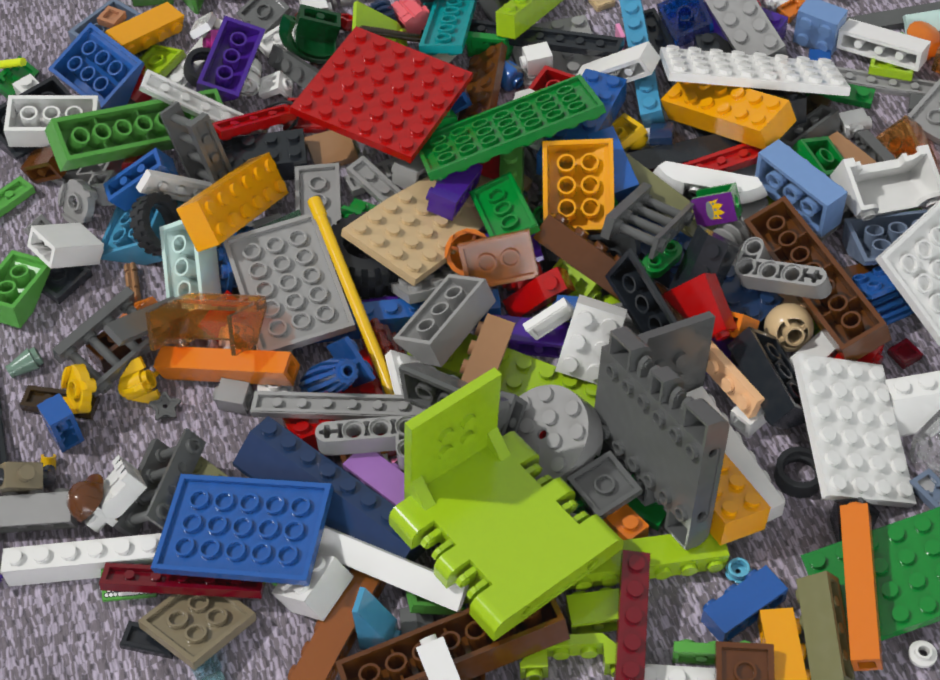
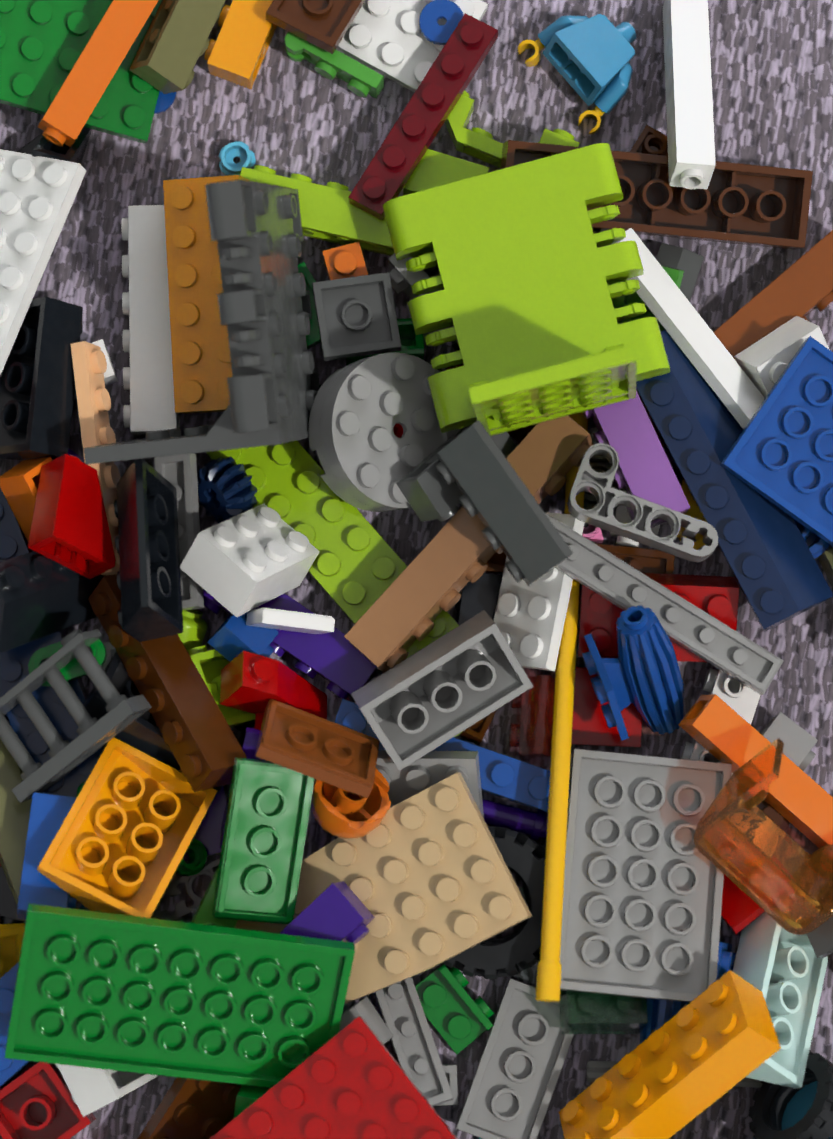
camera: 160 degrees left, 30 degrees up
(372, 621) = (733, 274): dark azure slope -> none
(742, 602) = (258, 107): blue brick -> none
(788, 485) = (102, 265): black tyre -> none

